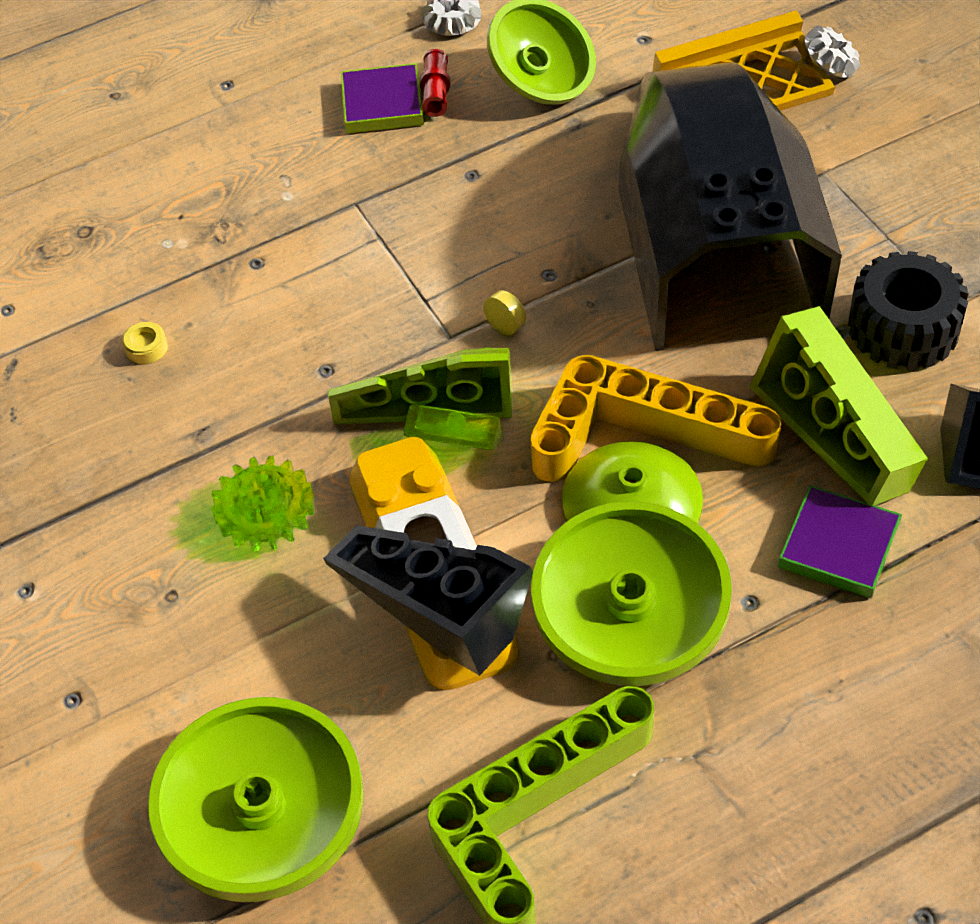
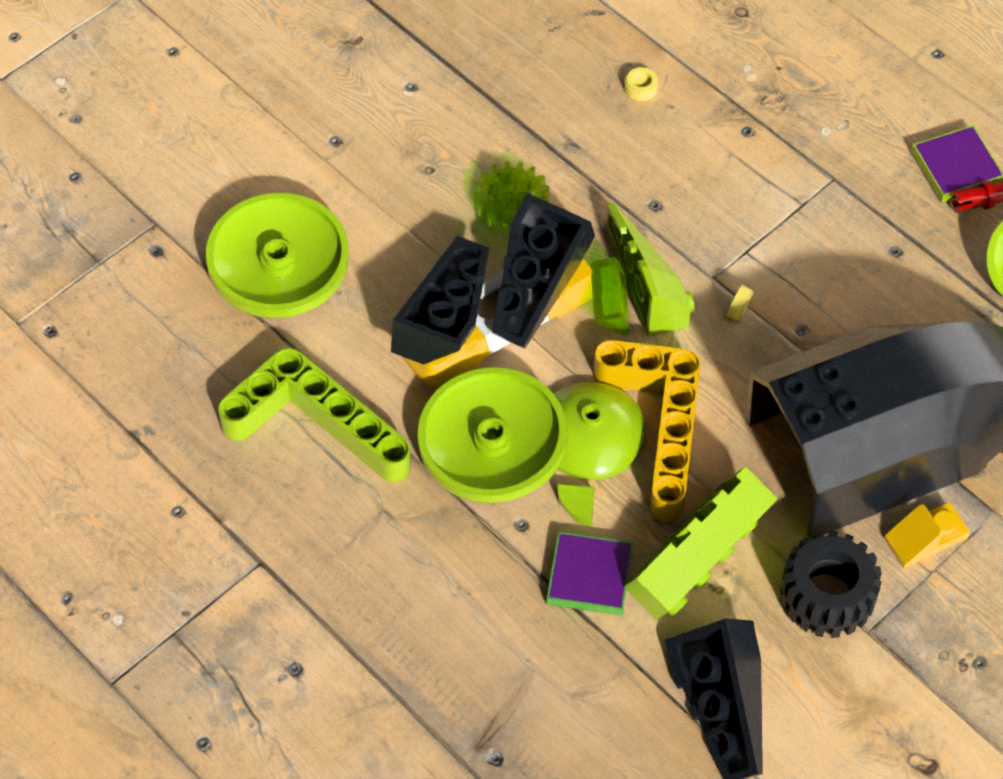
camera: 70 degrees right, 5 degrees up
(406, 467) = (539, 262): none -> black wedge
(739, 530) = (577, 502): none -> lime tile
(853, 226) = (926, 533): none -> yellow slope

